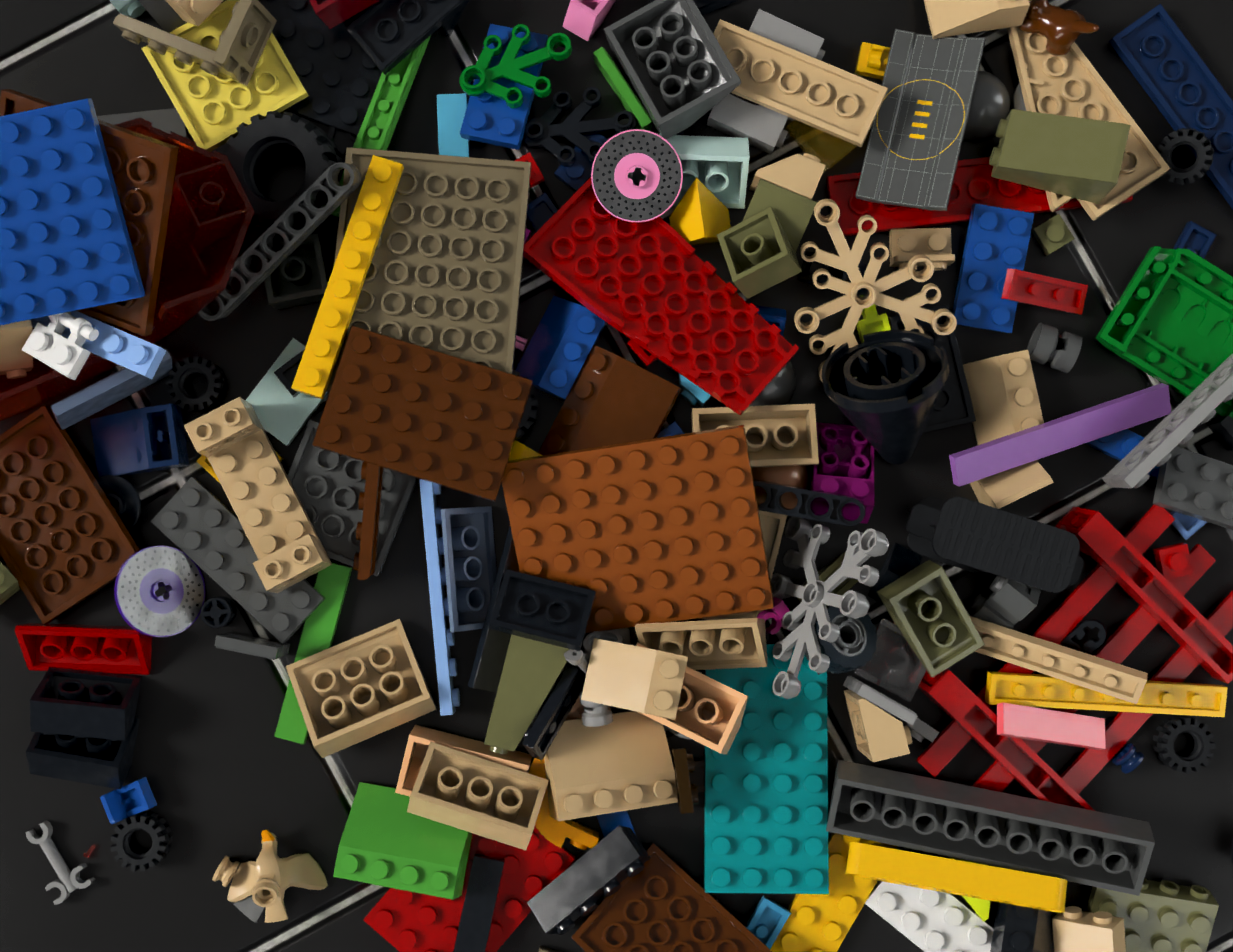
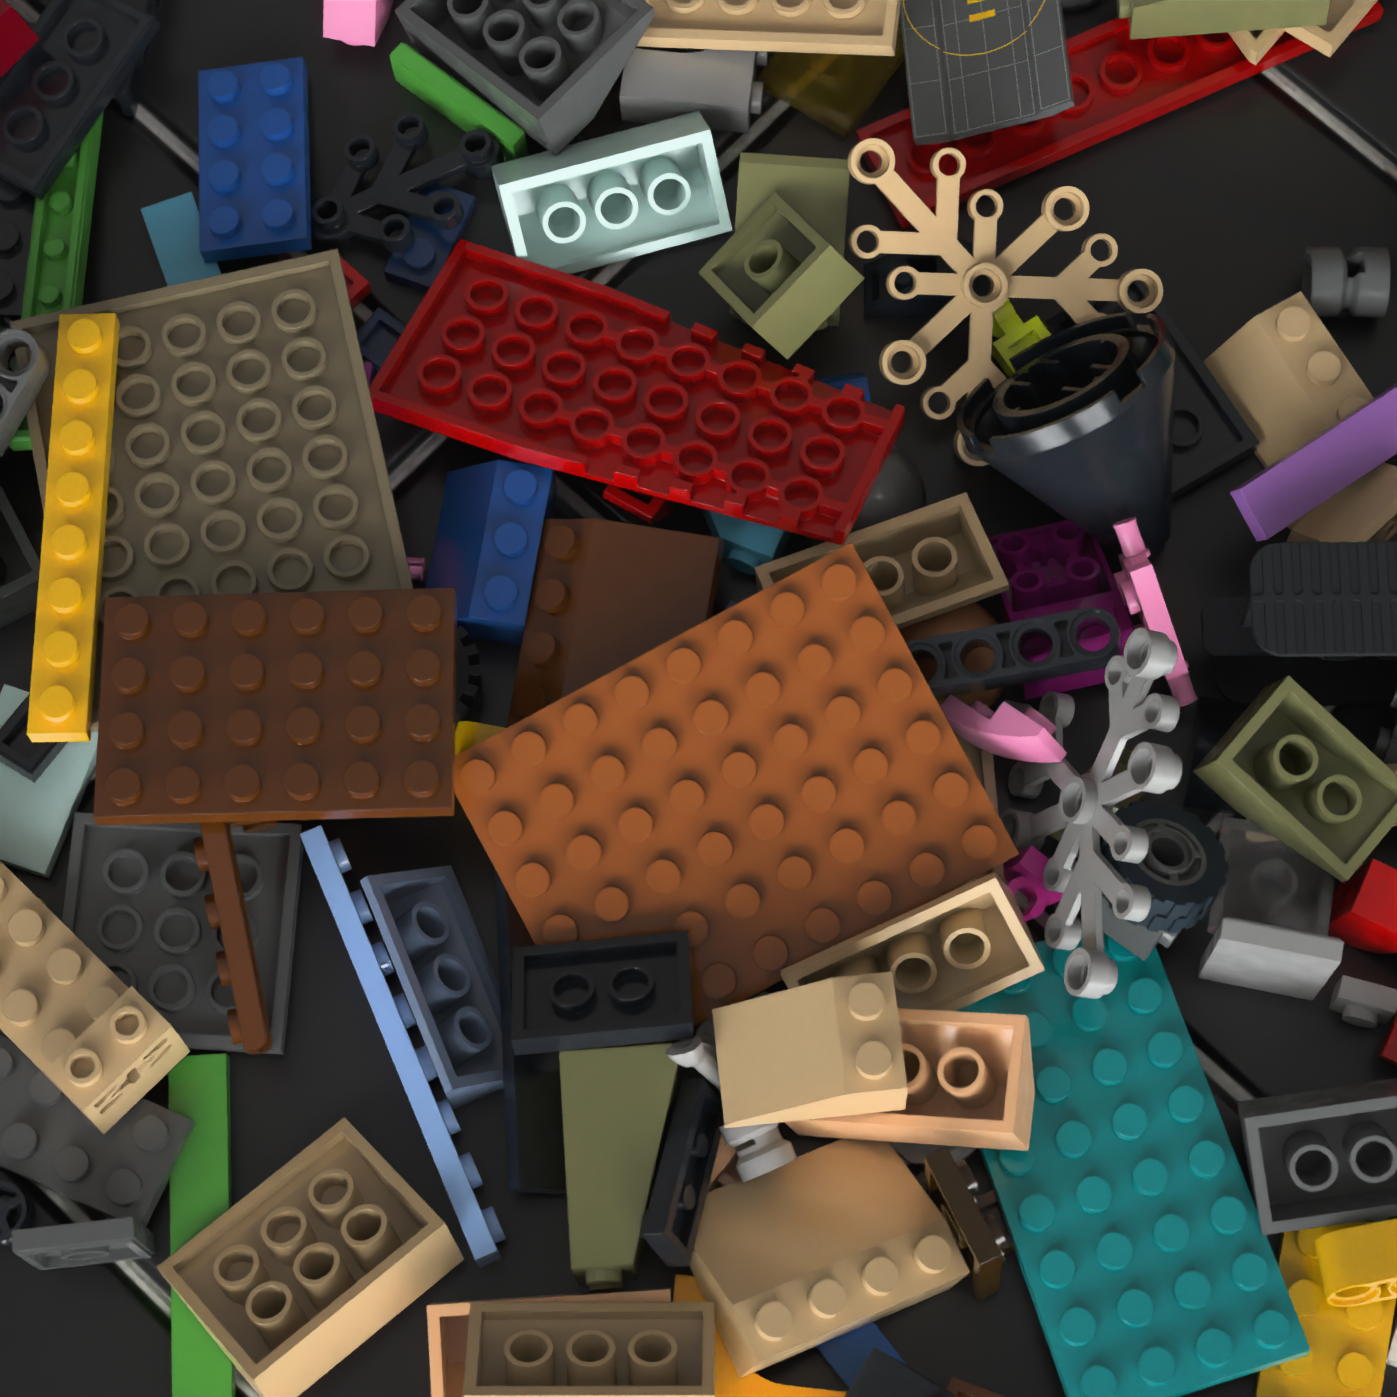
camera: 10 degrees left, 15 degrees down
(512, 67) = (259, 117): green plant -> none
(622, 155) = (555, 185): flat silver piece -> none
(700, 215) = (659, 259): yellow slope -> none
(789, 539) = (1004, 732): none -> bright pink slope
(794, 173) = (793, 127): tan slope -> none
(875, 731) = (1278, 1006): tan slope -> none
(885, 497) = (1143, 596): none -> bright pink plate
(931, 242) = (1025, 193): tan bracket -> none
(994, 242) = (1191, 189): blue plate -> none
(1044, 291) = (1293, 195): red plate -> none
(1052, 234) = (1272, 110): olive plate -> none

